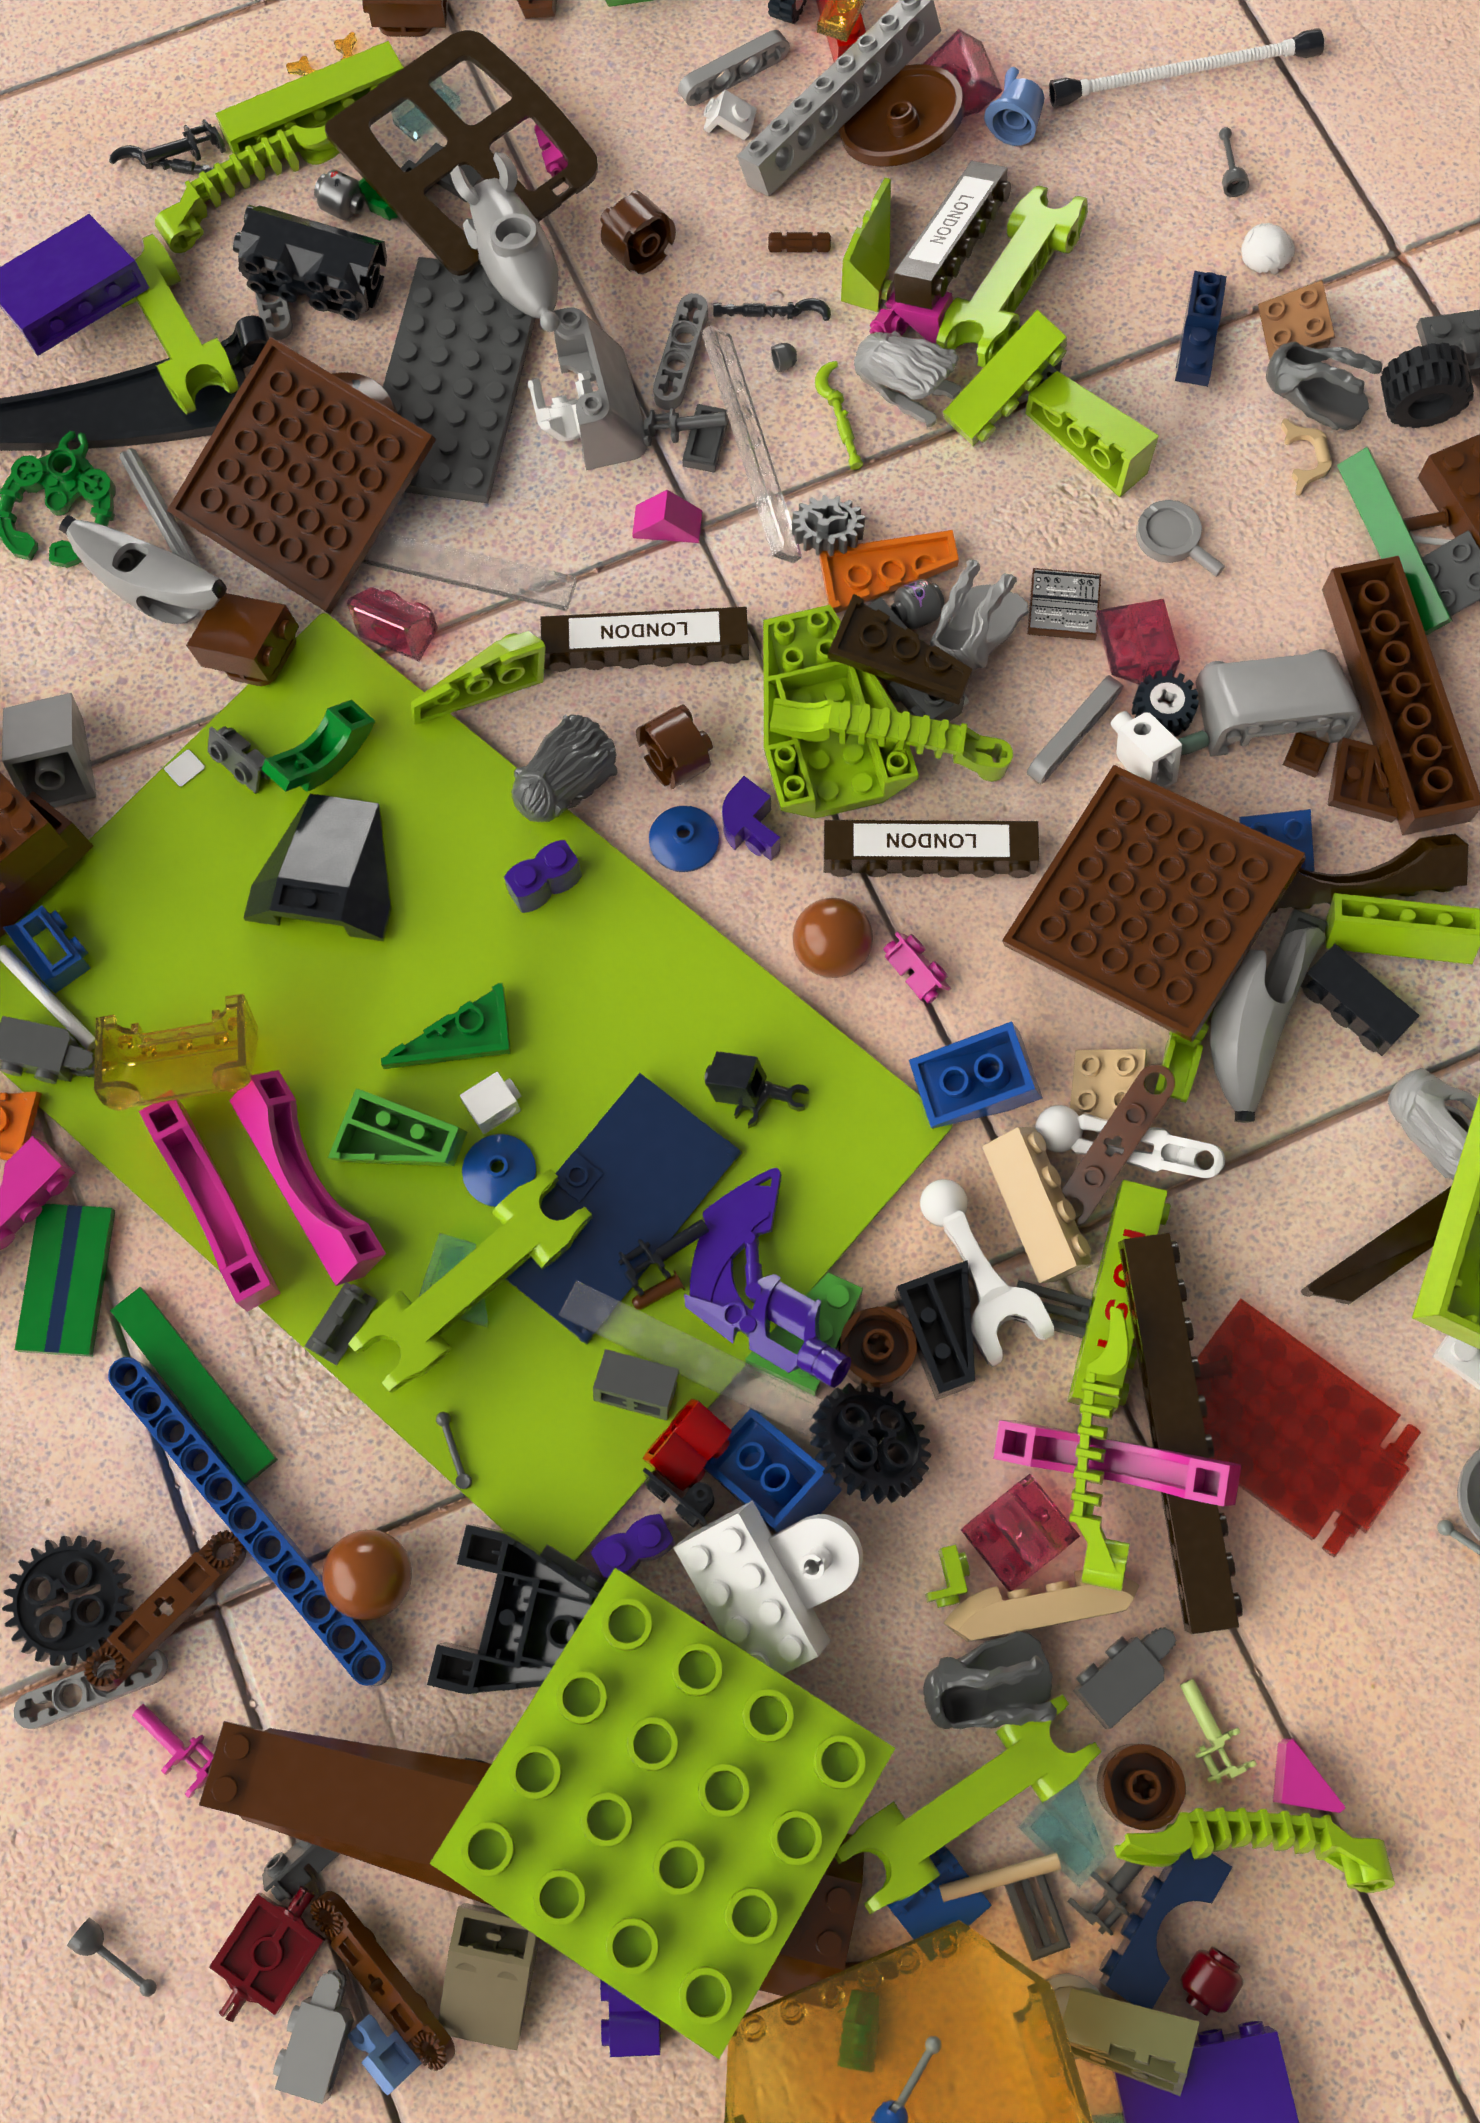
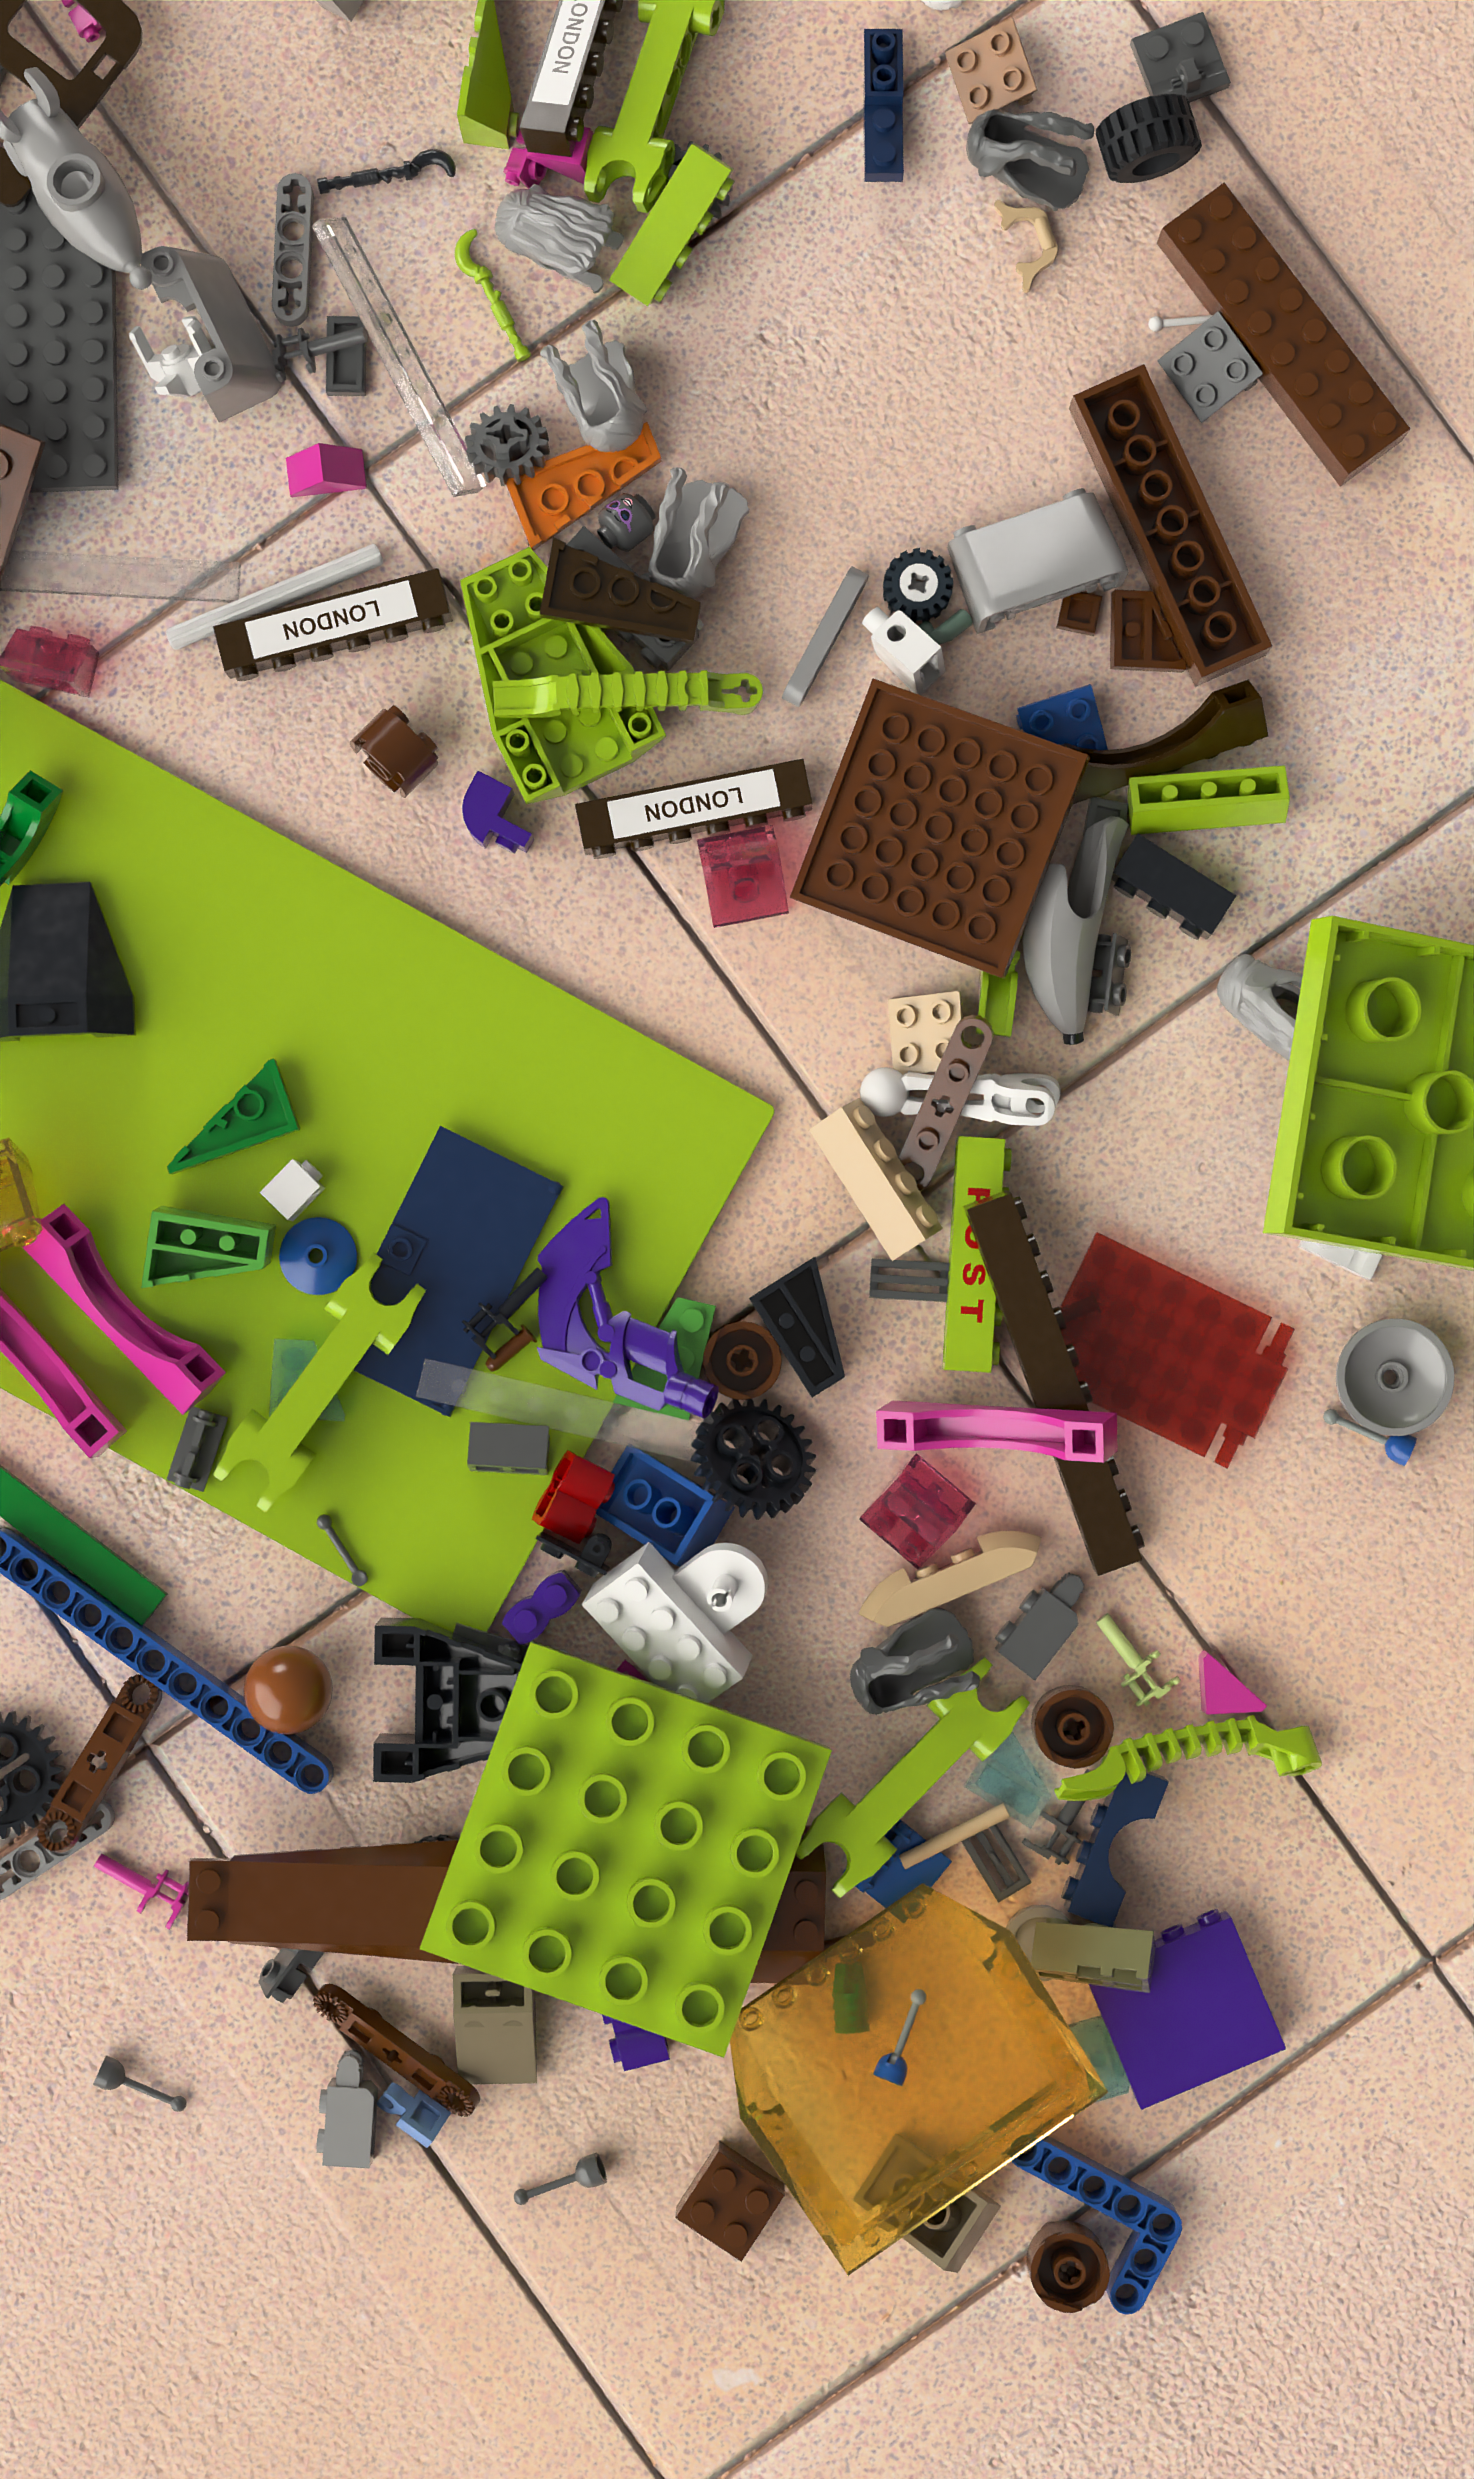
camera: 10 degrees left, 15 degrees up
(267, 1953) = (282, 2050): dark red plate -> none
(495, 672) = (181, 697): lime wedge -> none
(549, 873) = (295, 923): dark purple brick -> none
(564, 769) = (281, 804): dark grey hair -> none
(635, 602) = (276, 595): none -> white axle
(637, 232) = (208, 110): reddish brown brick -> none
(684, 853) = (439, 863): blue dish -> none
(735, 1079) = (540, 1113): black brick -> none
(775, 1092) = (575, 1115): black arm -> none
(783, 356) = (413, 234): dark grey hinge -> none
(799, 241) = (399, 76): reddish brown axle -> none
(832, 937) = (610, 929): dark orange piece -> none
(909, 955) = (696, 933): dark pink hinge -> none
(918, 499) = (600, 391): none -> light grey hair
(945, 1206) = (783, 1199): white piece -> none
(955, 1569) = (860, 1560): lime bracket -> none
(963, 914) = (743, 876): none -> clear pink slope
(976, 1077) = (789, 1055): blue slope -> none
(1064, 604) = (787, 487): tile -> none
(1093, 432) = (780, 265): lime wedge -> none
(1104, 1558) = (1000, 1524): lime piece -> none
(1138, 640) = (874, 520): clear pink slope -> none
(1171, 533) = (892, 371): light grey piece -> none
(1211, 1981) = (1166, 1885): dark red head -> none
(1286, 1080) = (1112, 960): none -> dark grey hinge
(1382, 1255) = (1230, 1159): dark brown wedge -> none
(1392, 534) = (1138, 332): tile -> none
(1428, 520) = (1169, 301): reddish brown piece -> none

